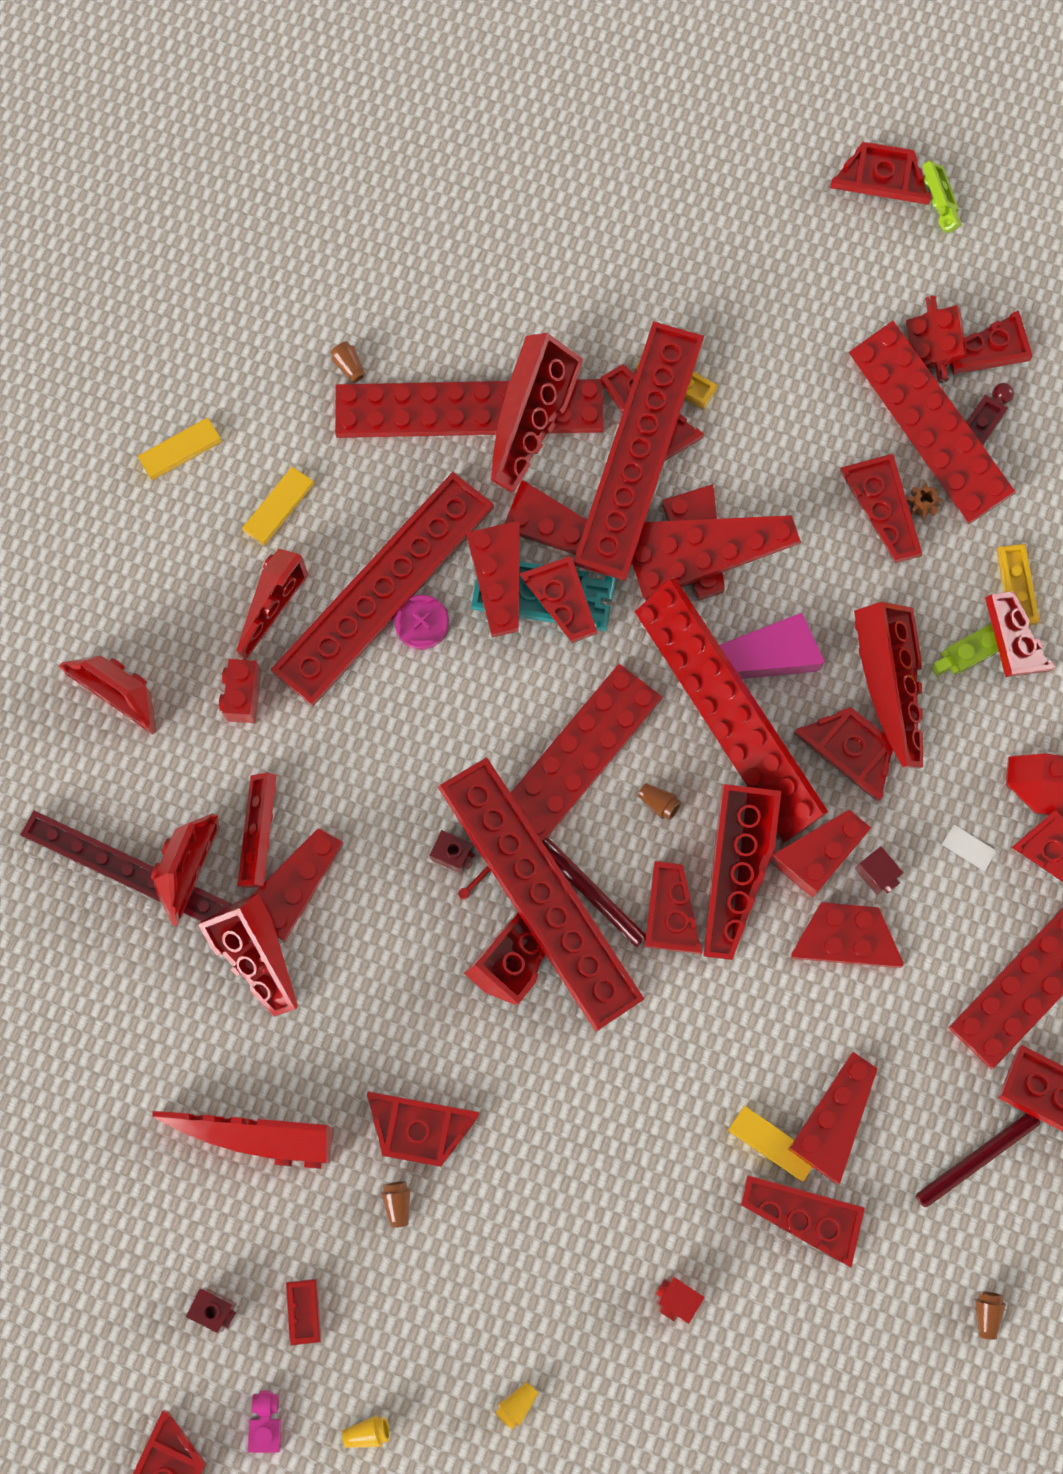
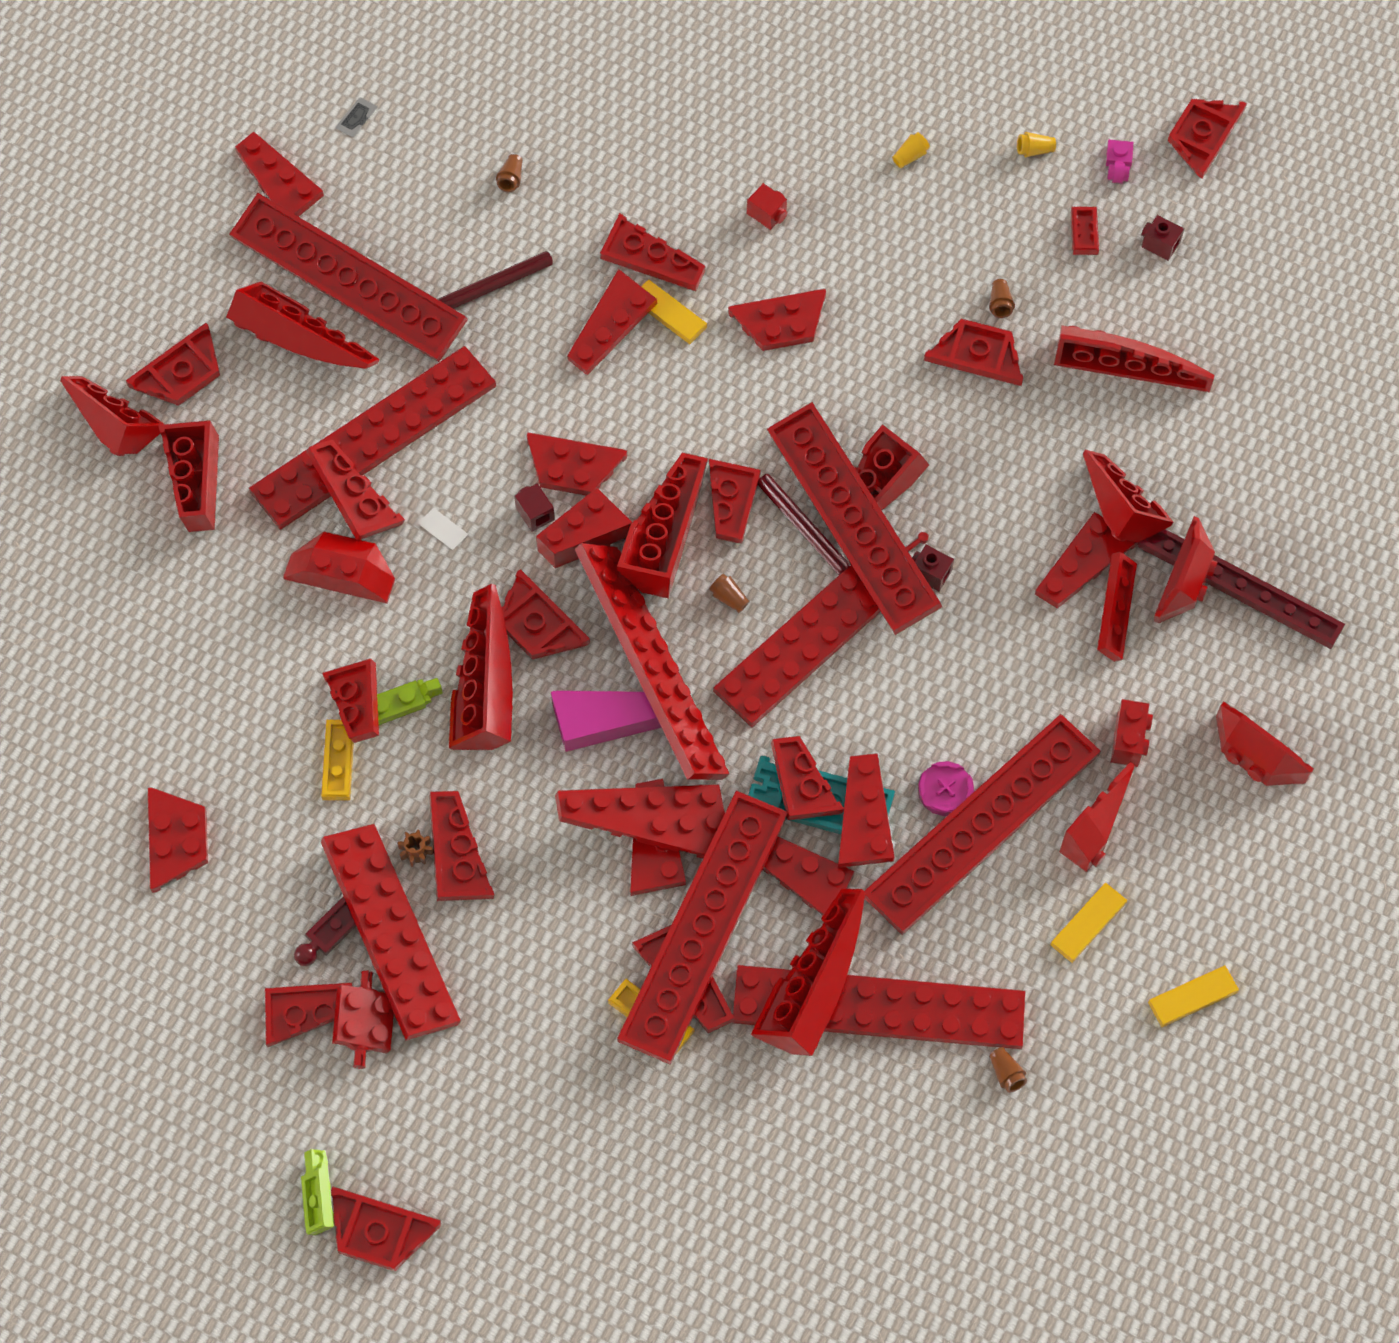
camera: 175 degrees left, 10 degrees down
(644, 1148) = (782, 319): none -> red wing

